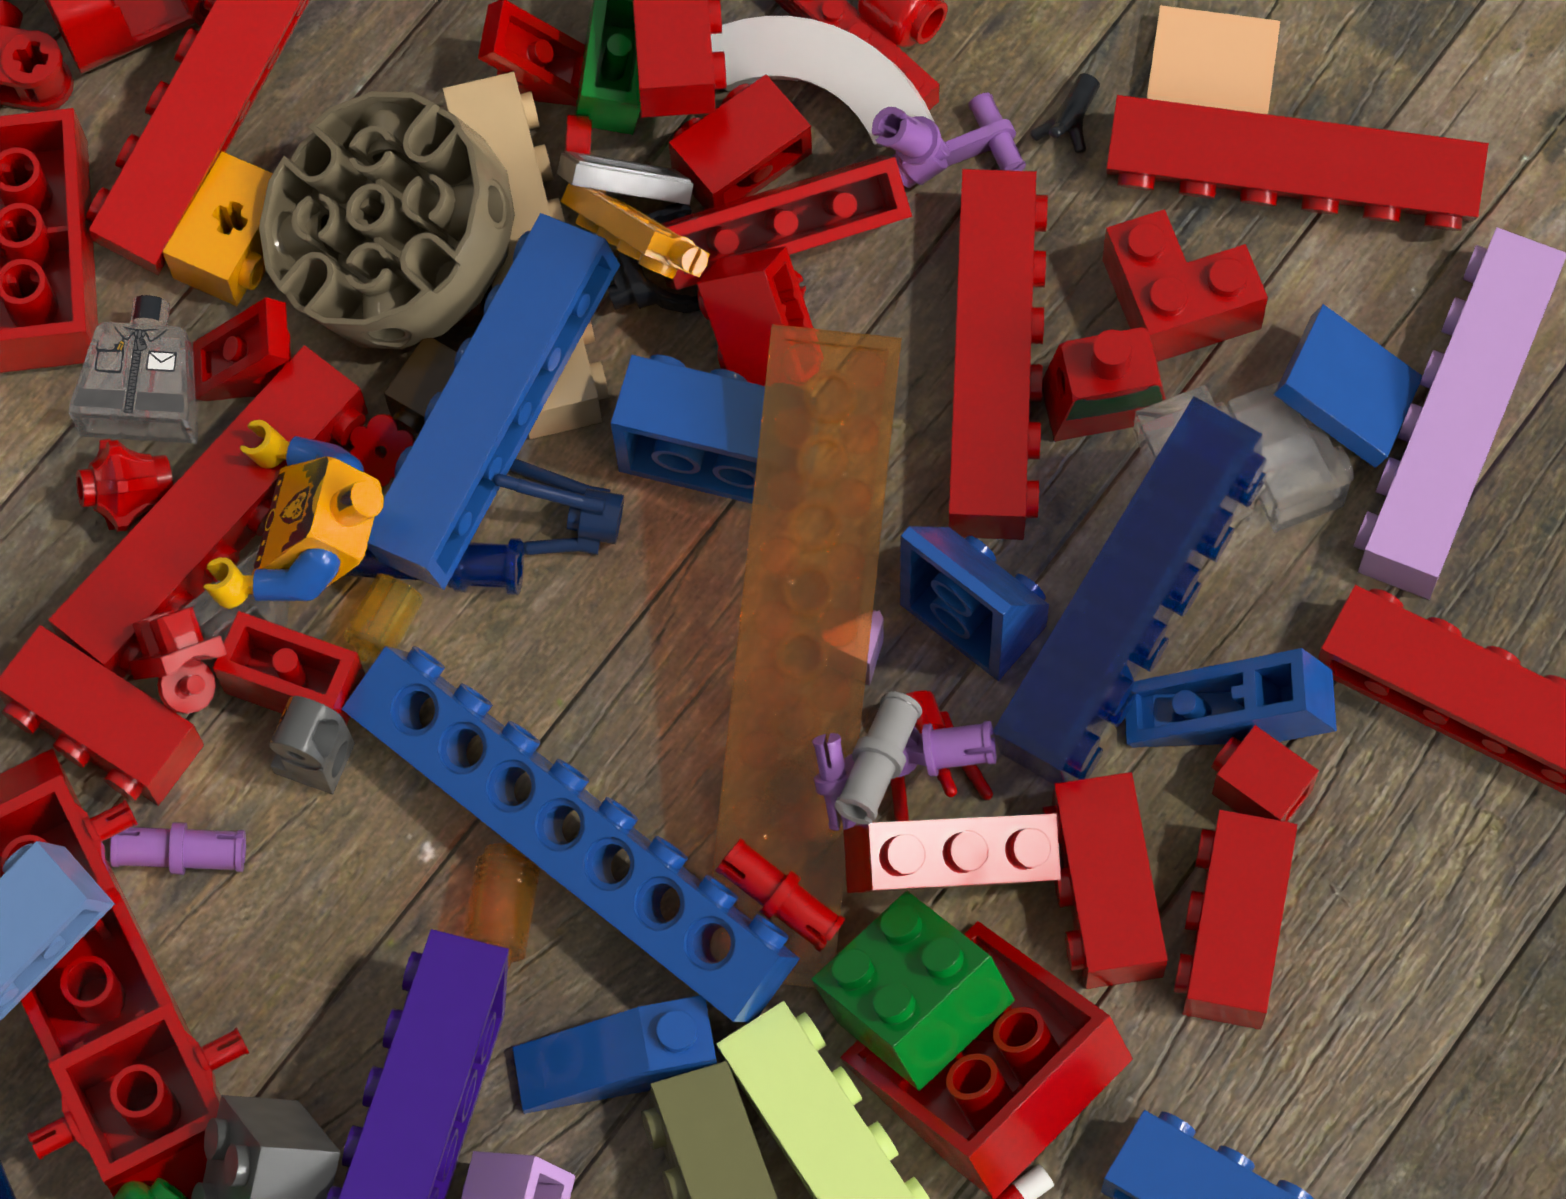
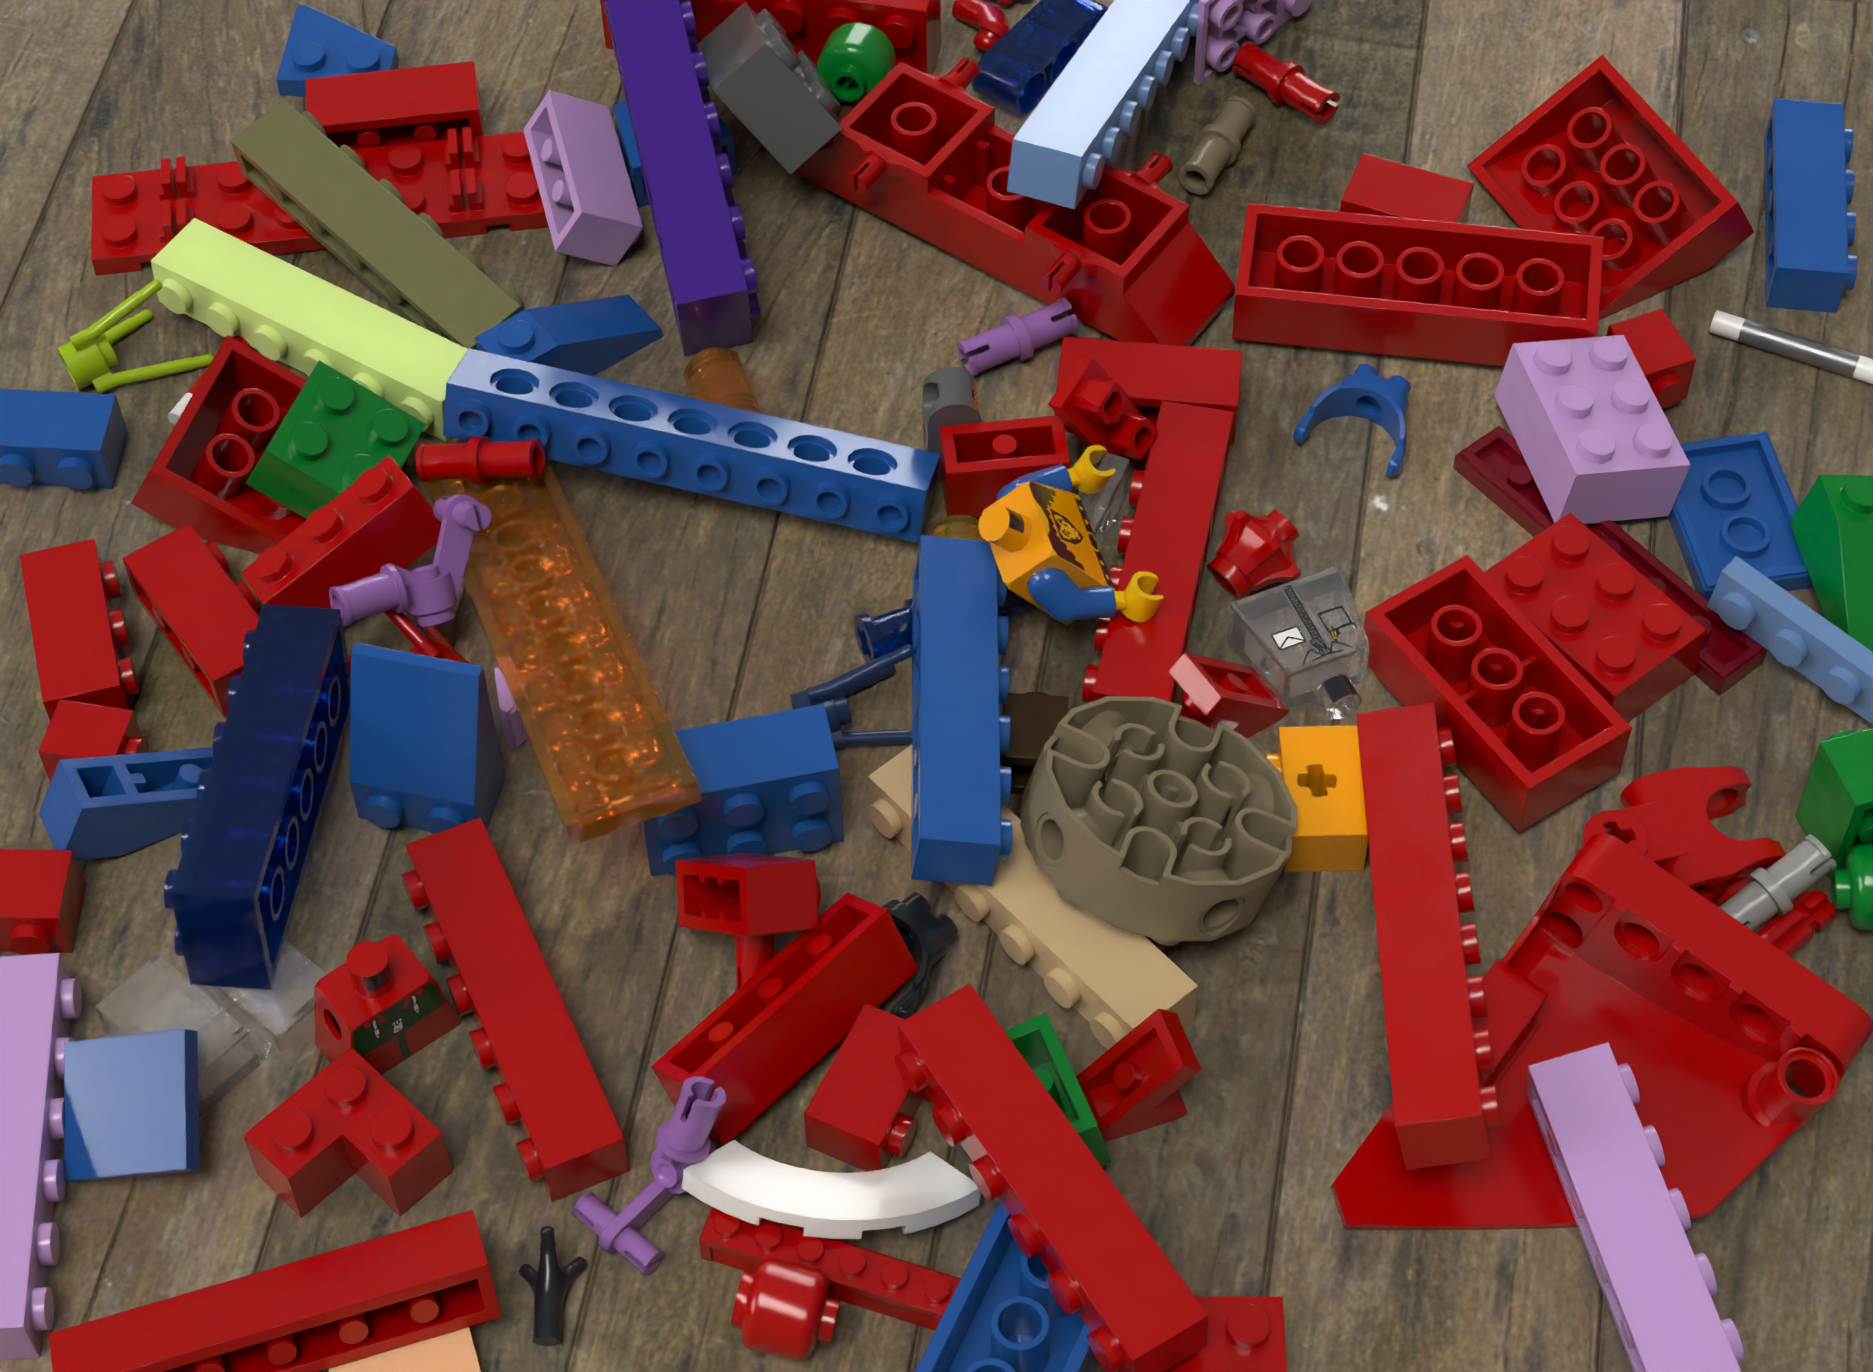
camera: 150 degrees right, 15 degrees down
(367, 441) = (1052, 682): red plant -> none
(578, 134) = (1033, 1002): red tile -> none
(625, 177) = (988, 962): tile -> none
(635, 232) = (903, 876): light orange plate -> none
(878, 758) = (428, 533): light grey pin -> none

